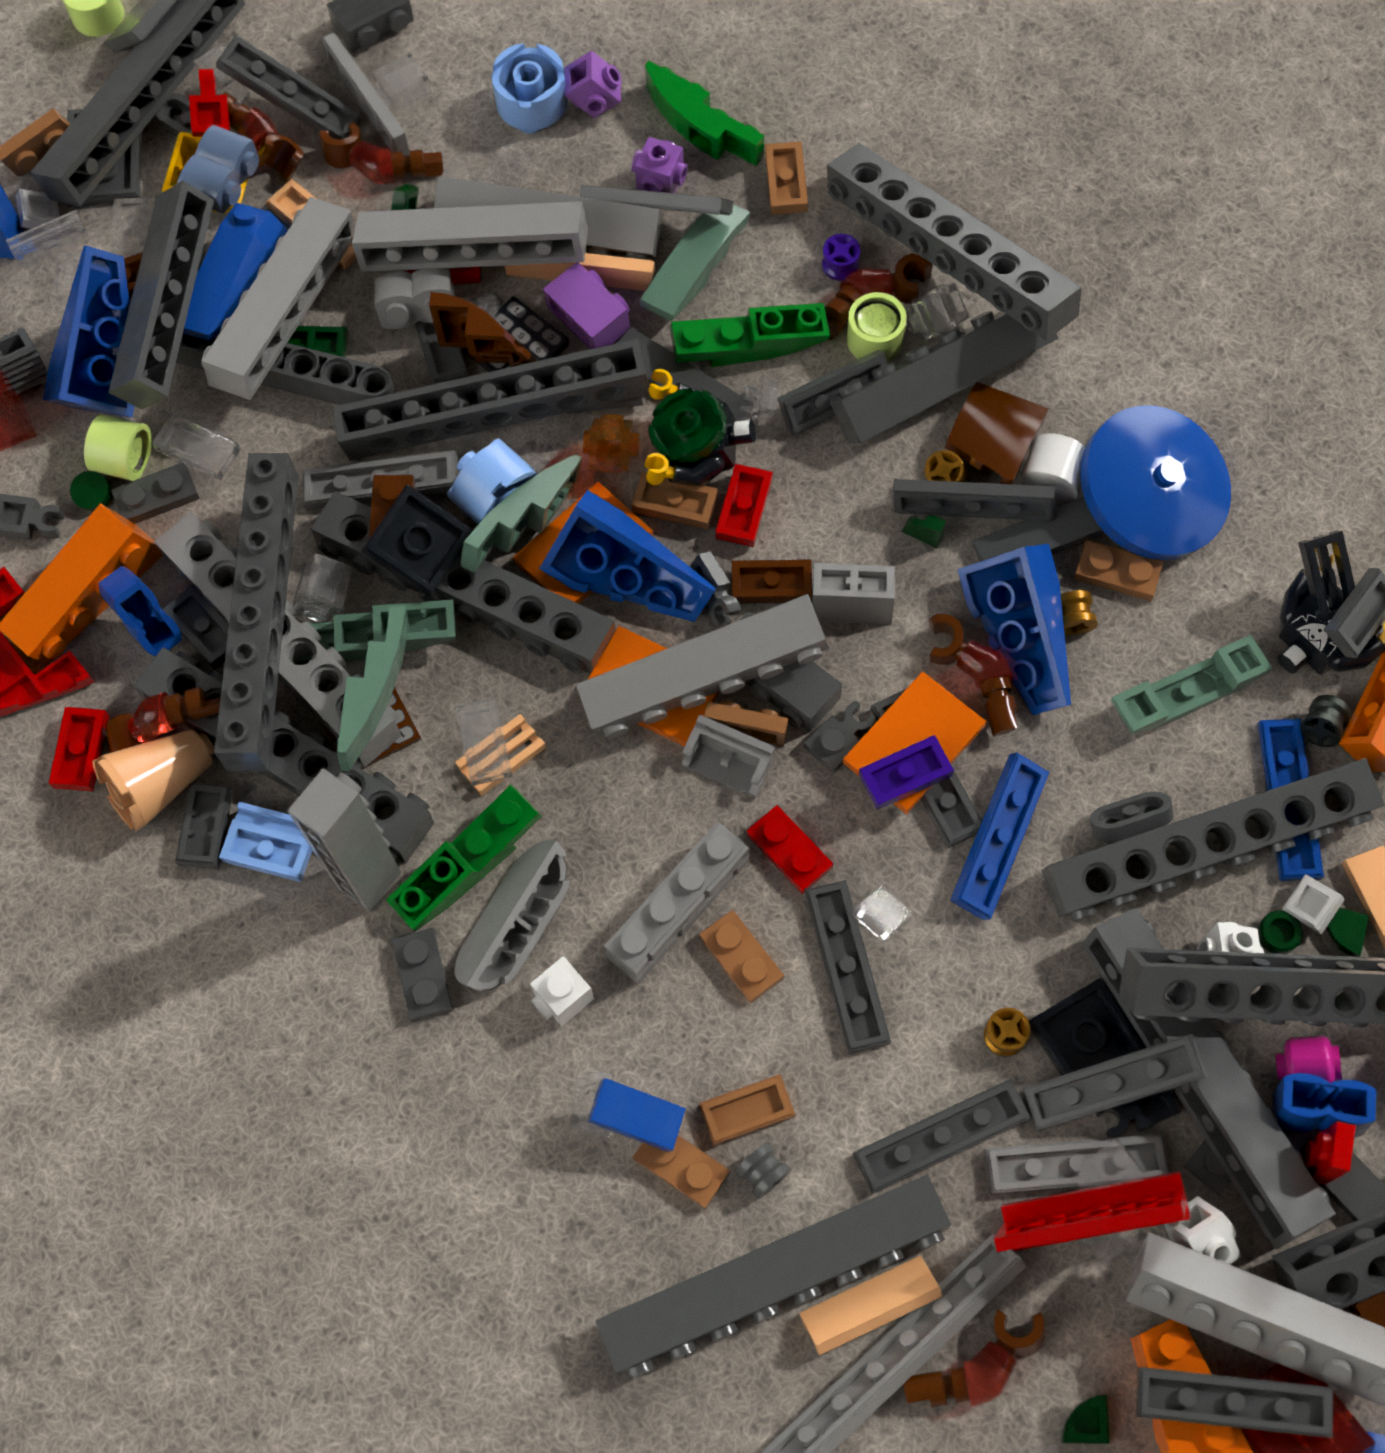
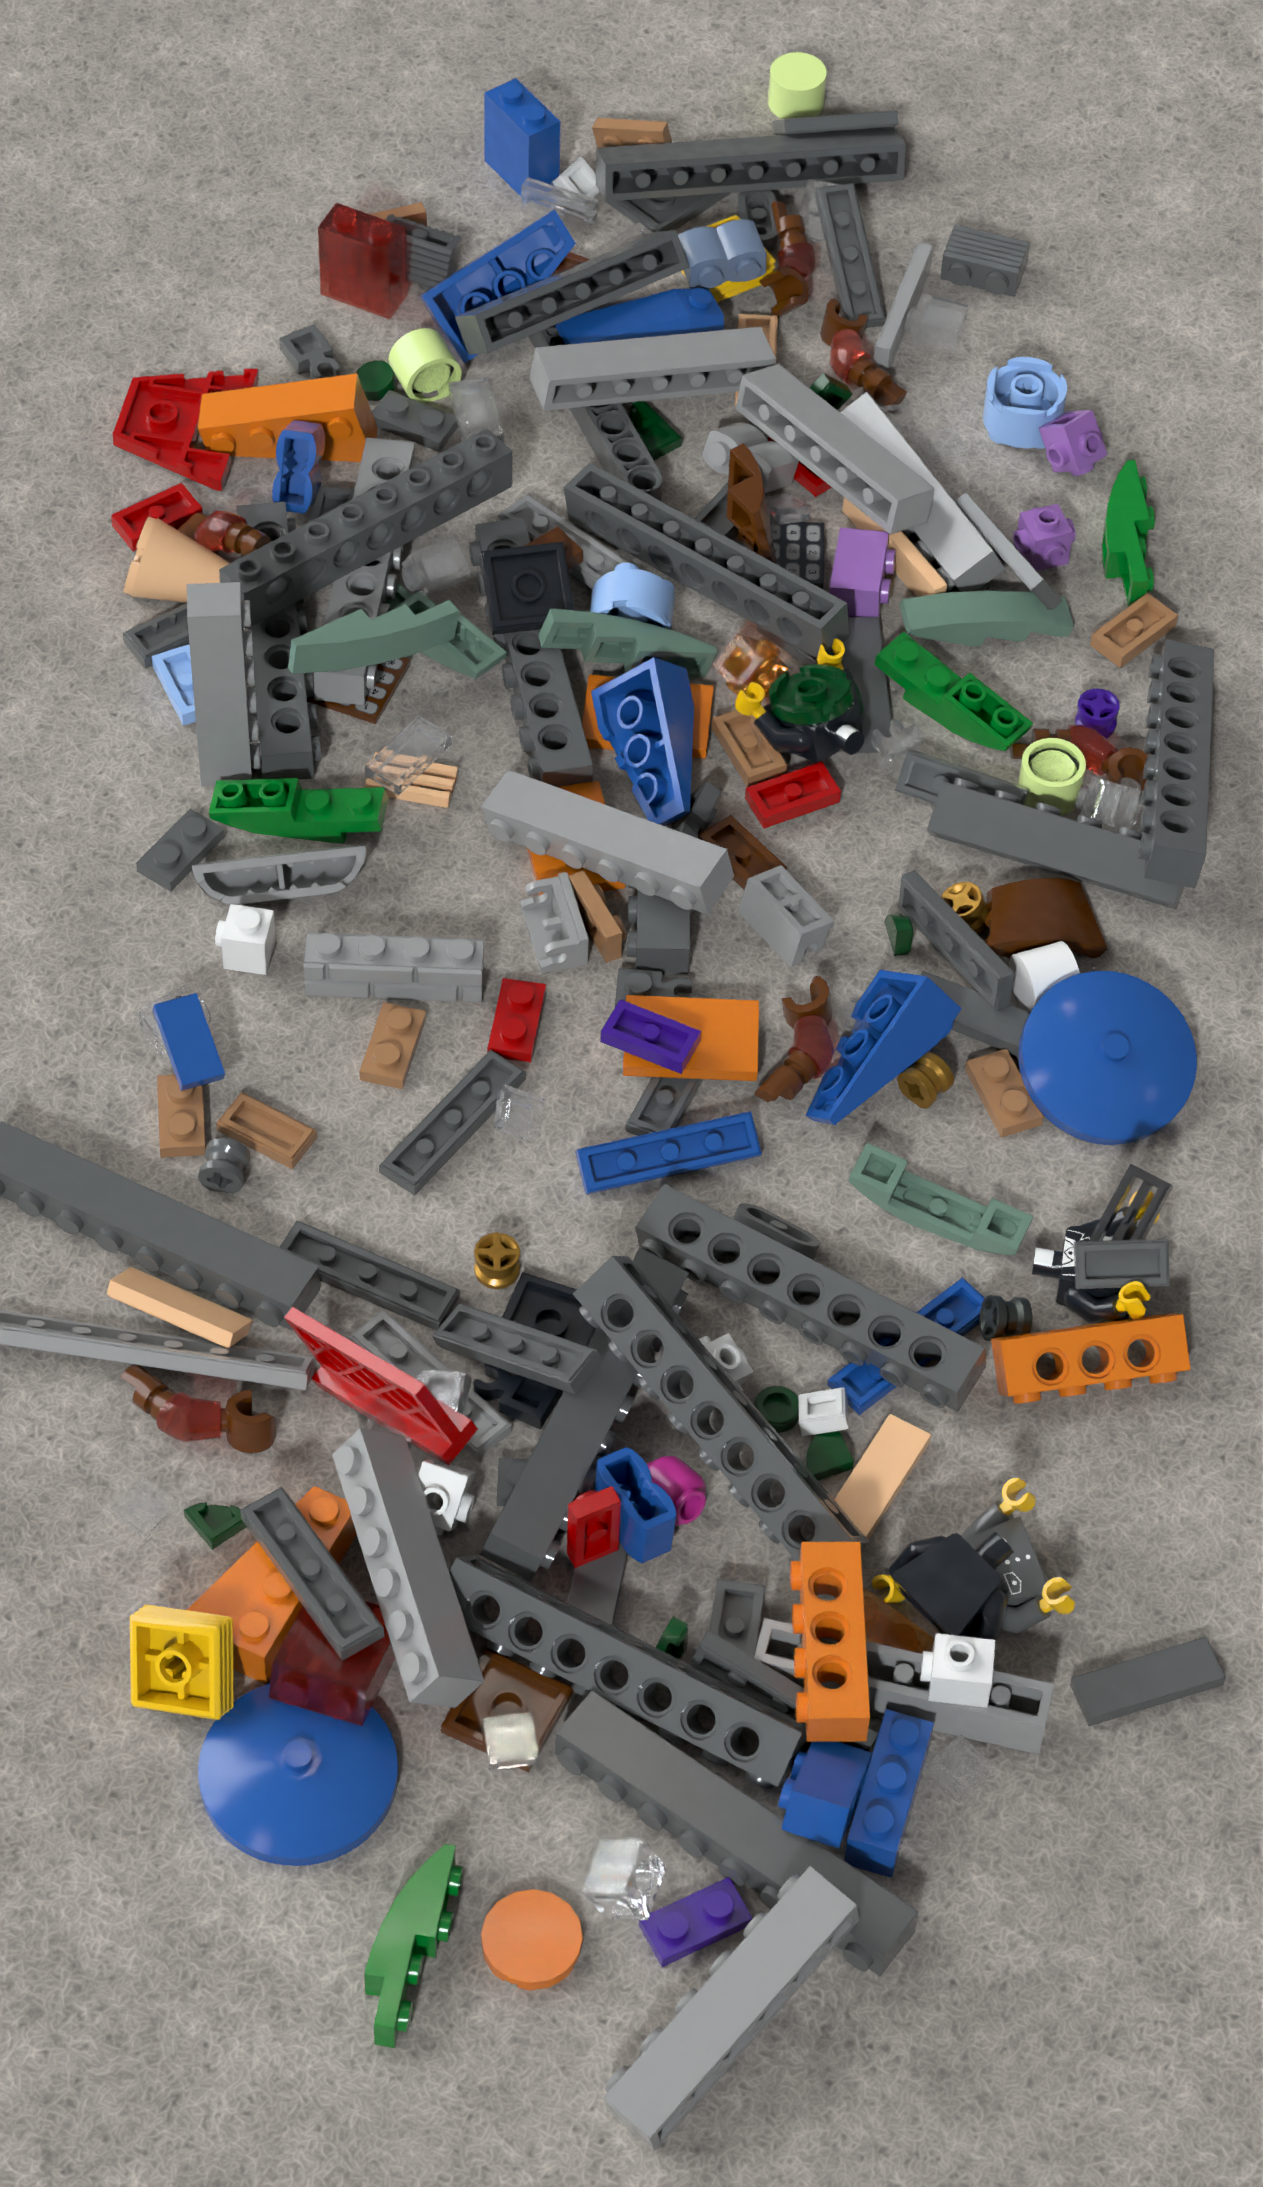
camera: 45 degrees right, 15 degrees down
(208, 107) = (774, 213): red plate -> none

